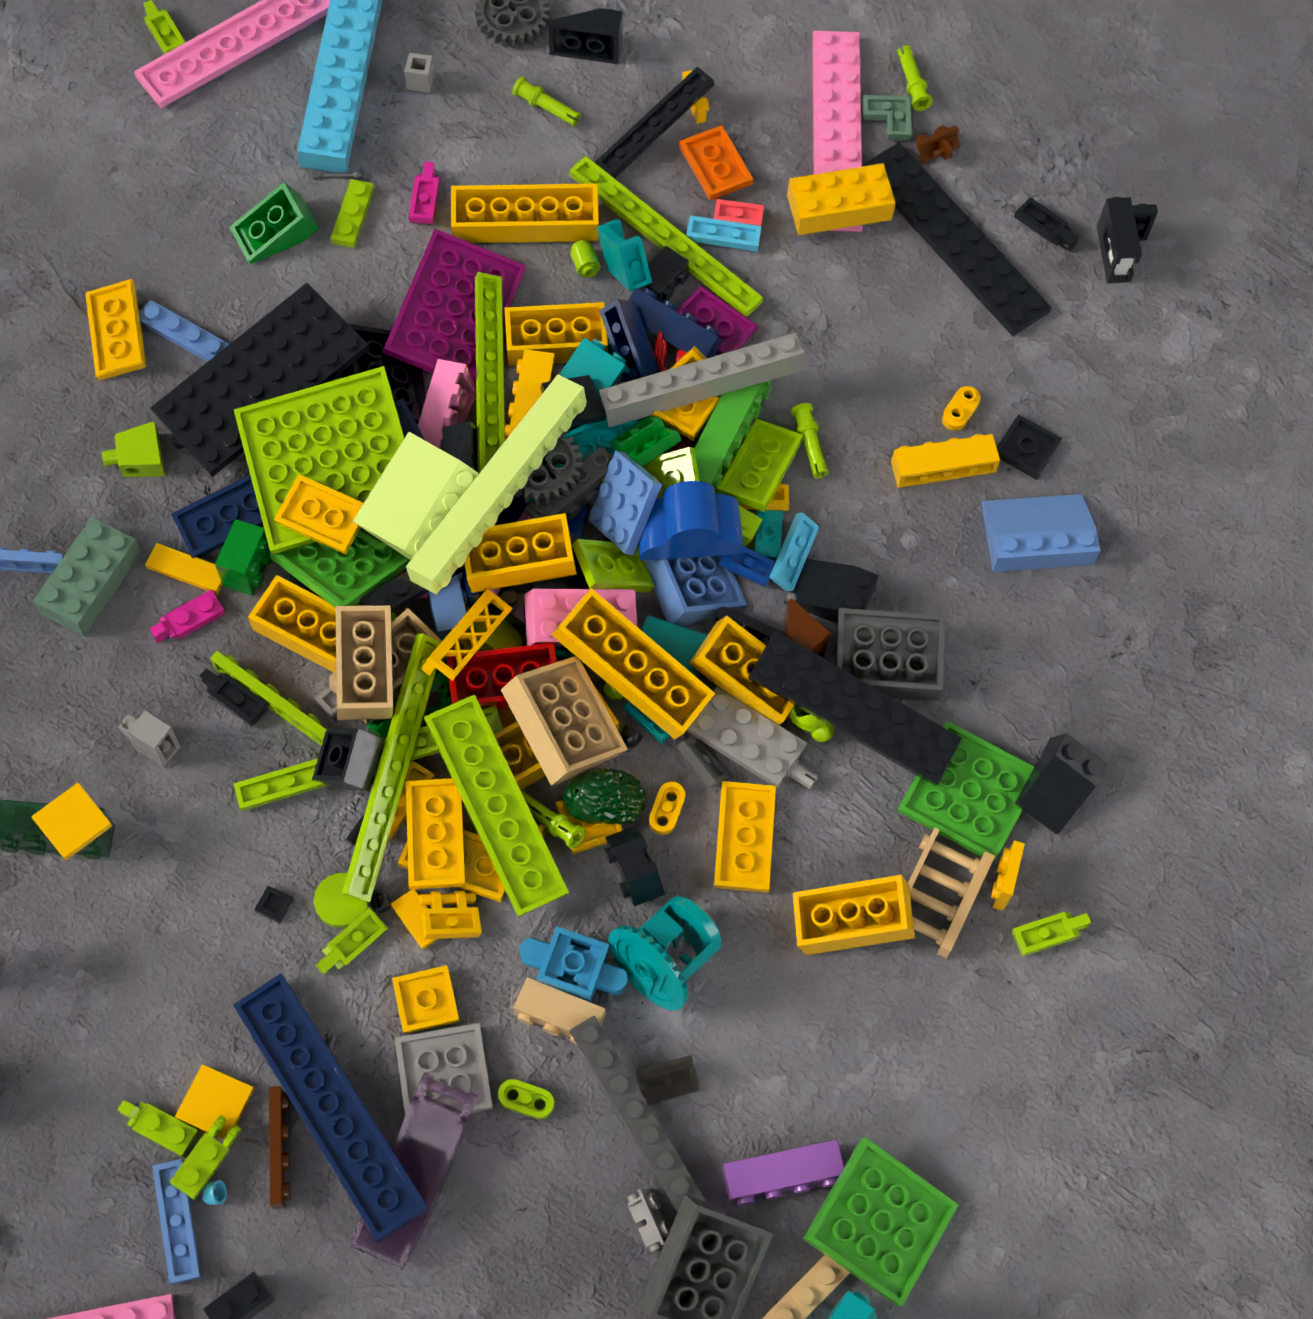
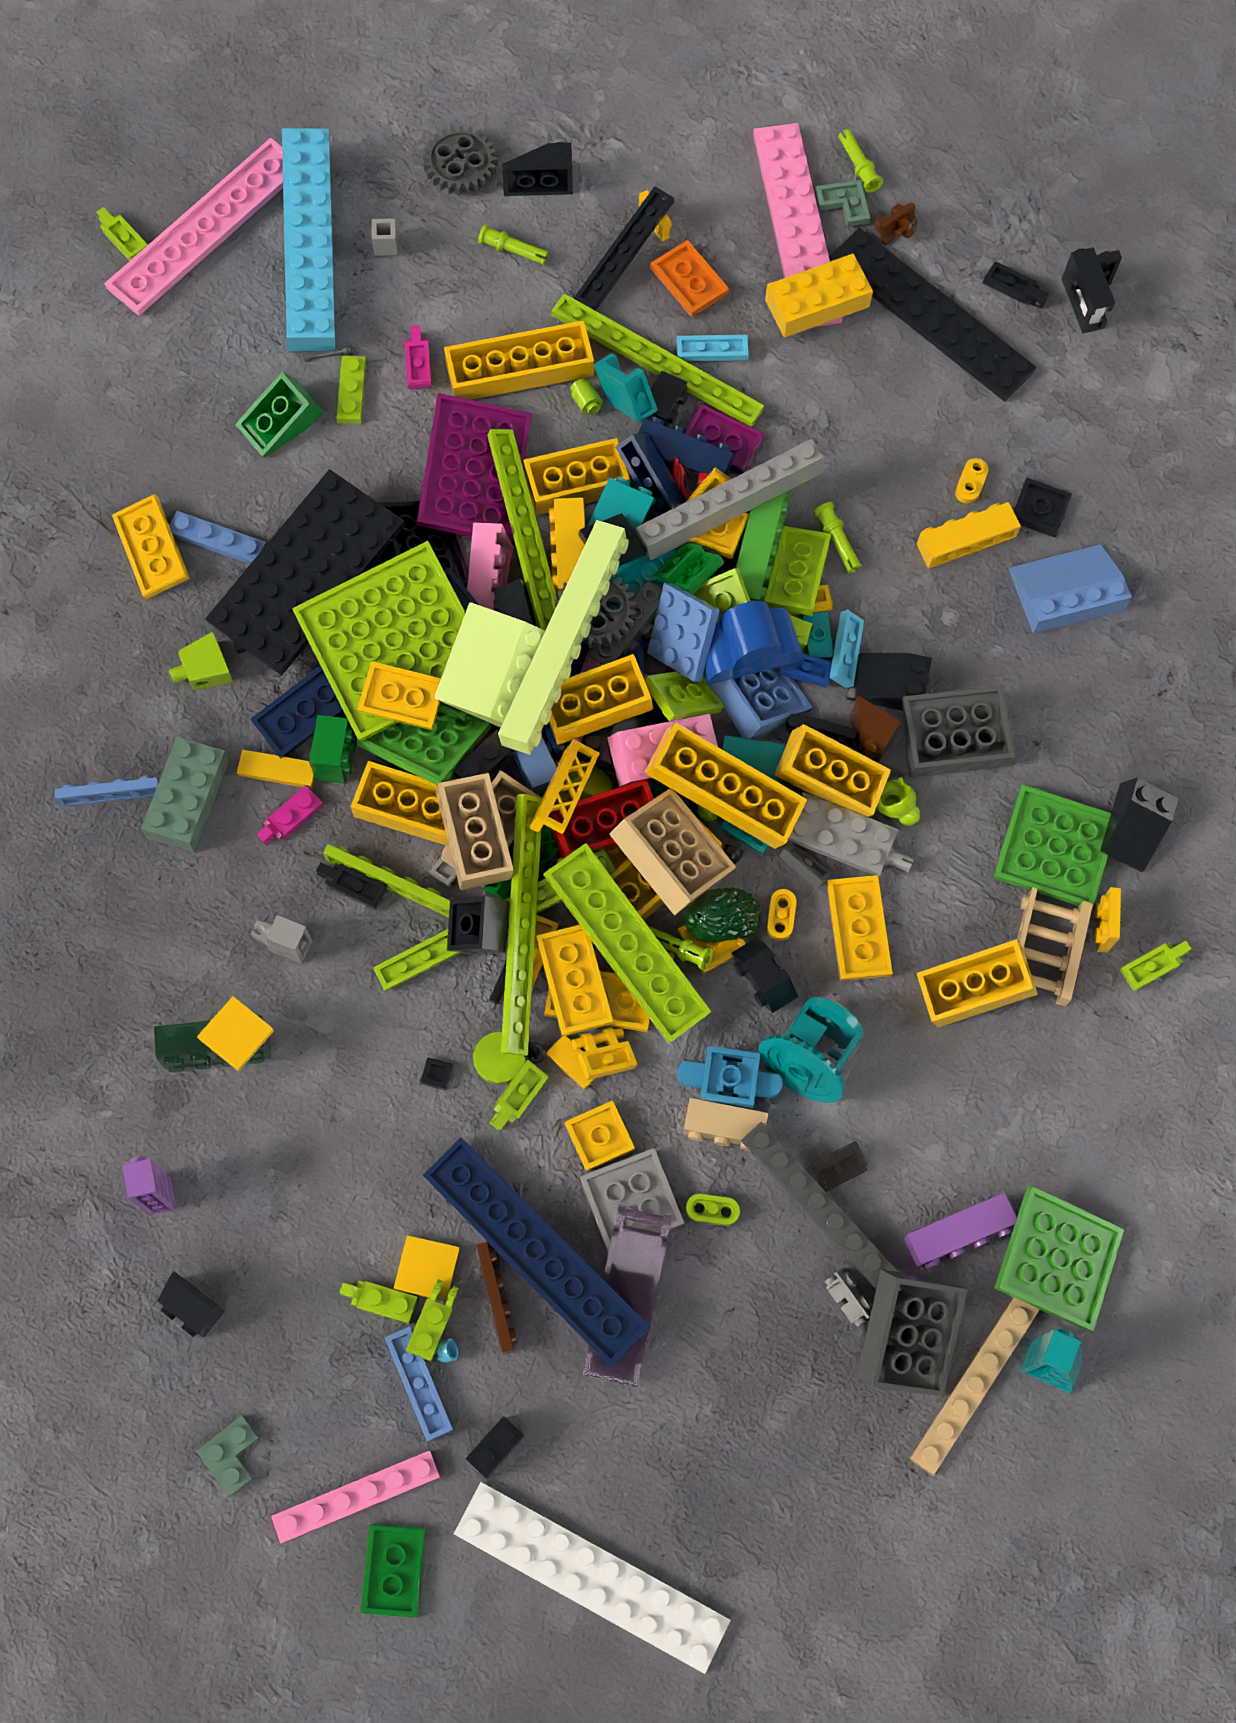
camera: 10 degrees left, 5 degrees up
(739, 212) = (722, 324): coral plate -> none
(855, 708) = (937, 789): black plate -> none

